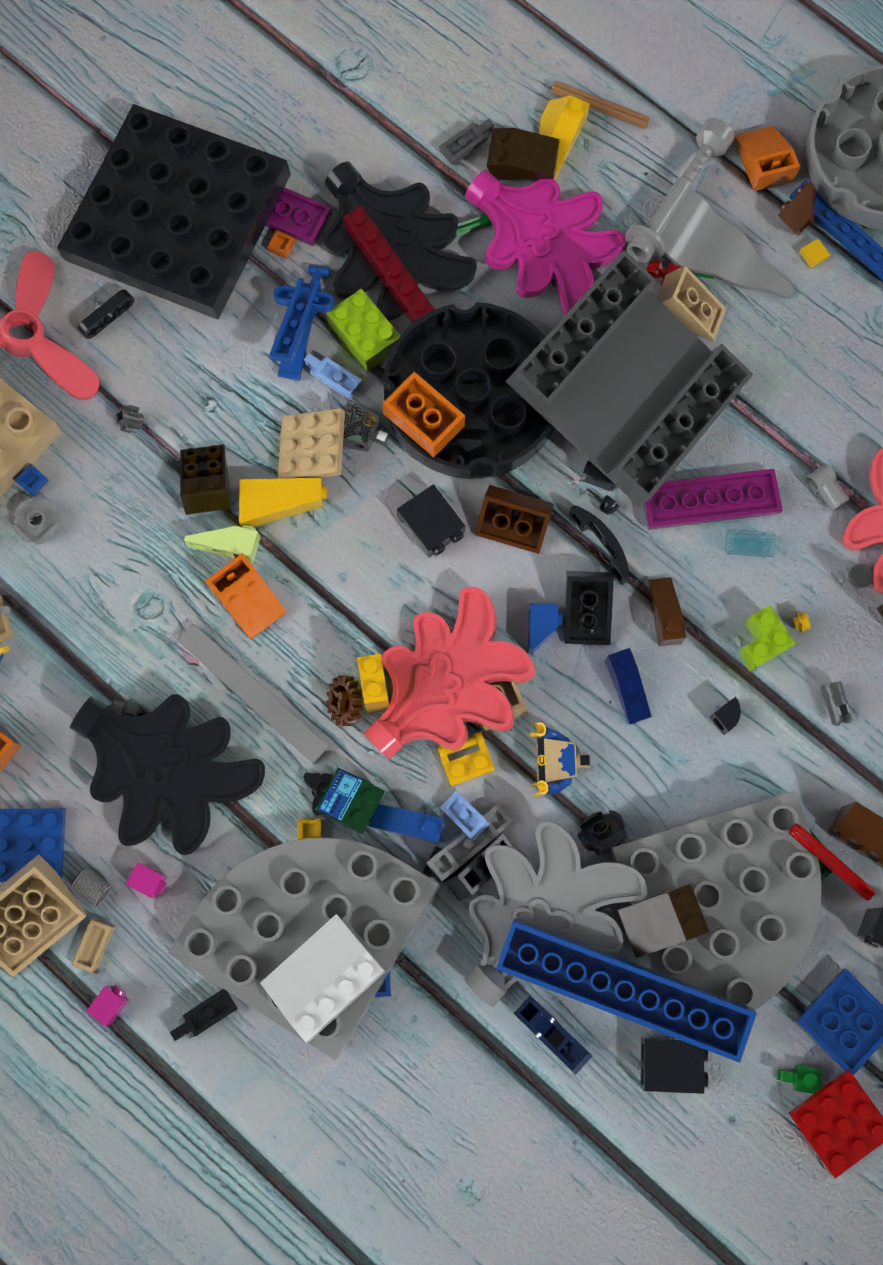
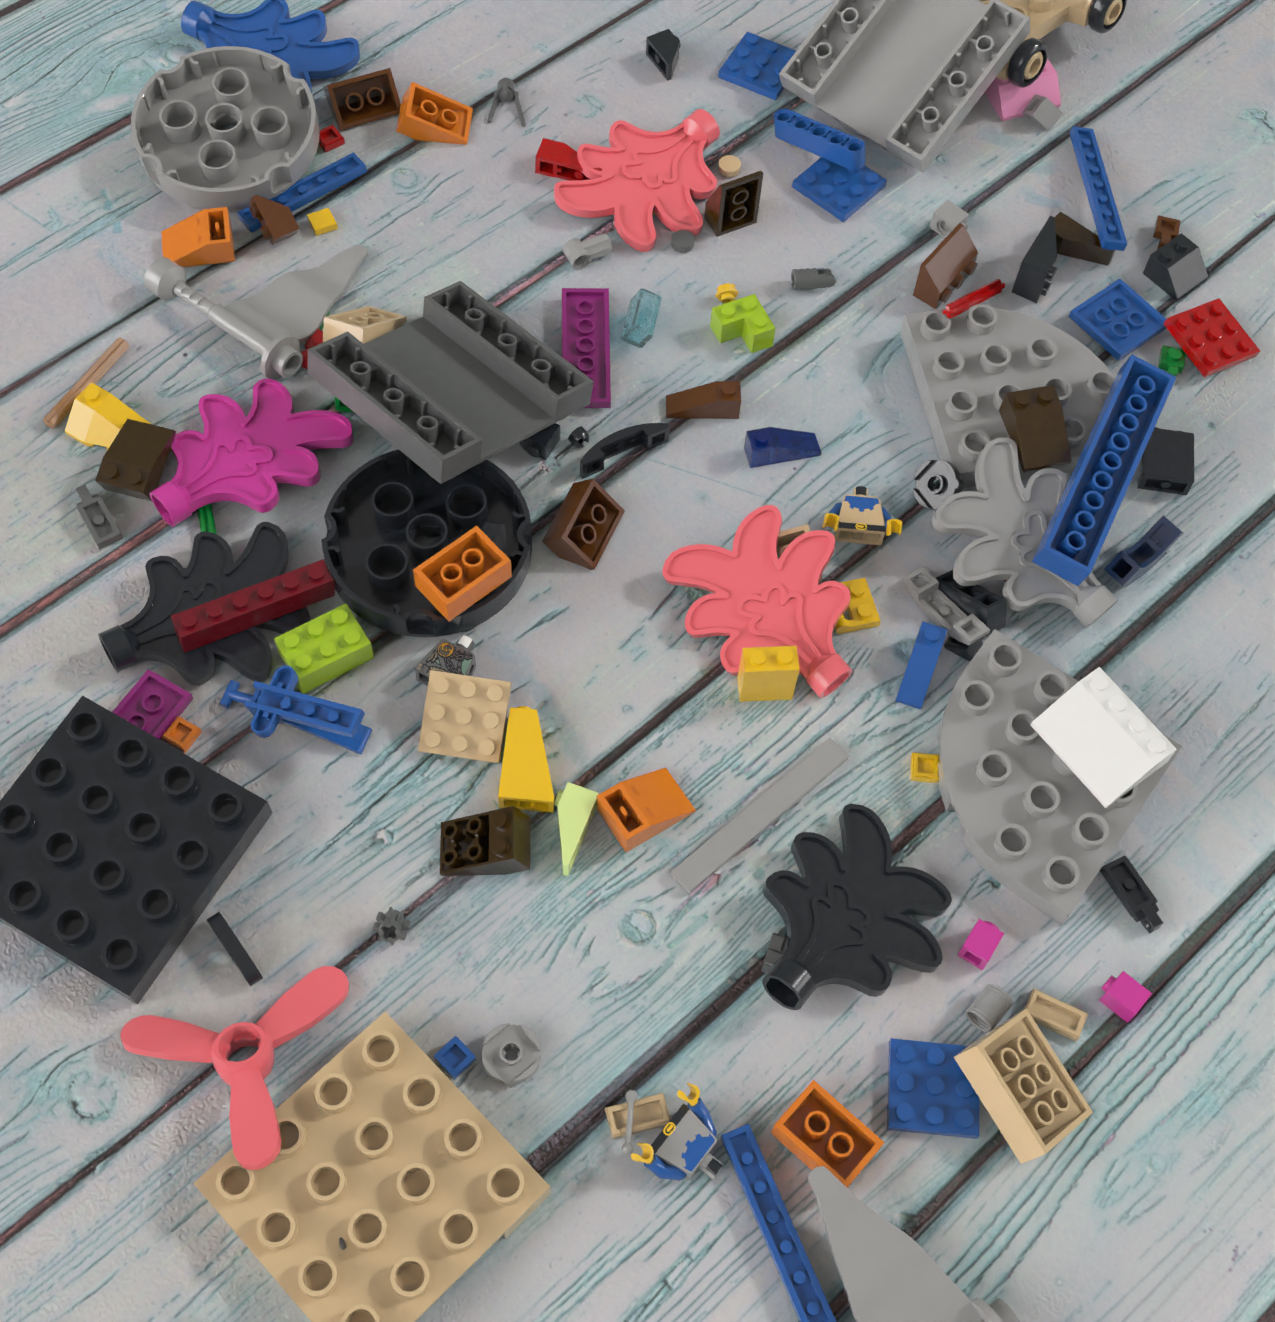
camera: 85 degrees left, 15 degrees down
(317, 783) = (870, 752): black animal -> none
(333, 375) = (377, 686): light blue hinge -> none
(344, 700) = (796, 708): reddish brown gear -> none
(349, 800) = (897, 714): slope -> none
(432, 520) = (574, 603): black panel -> none
(465, 815) = (915, 607): light blue plate -> none
(542, 624) = (710, 514): blue slope -> none
(588, 607) = (692, 468): black slope -> none
(727, 716) = (820, 366): black brick -> none

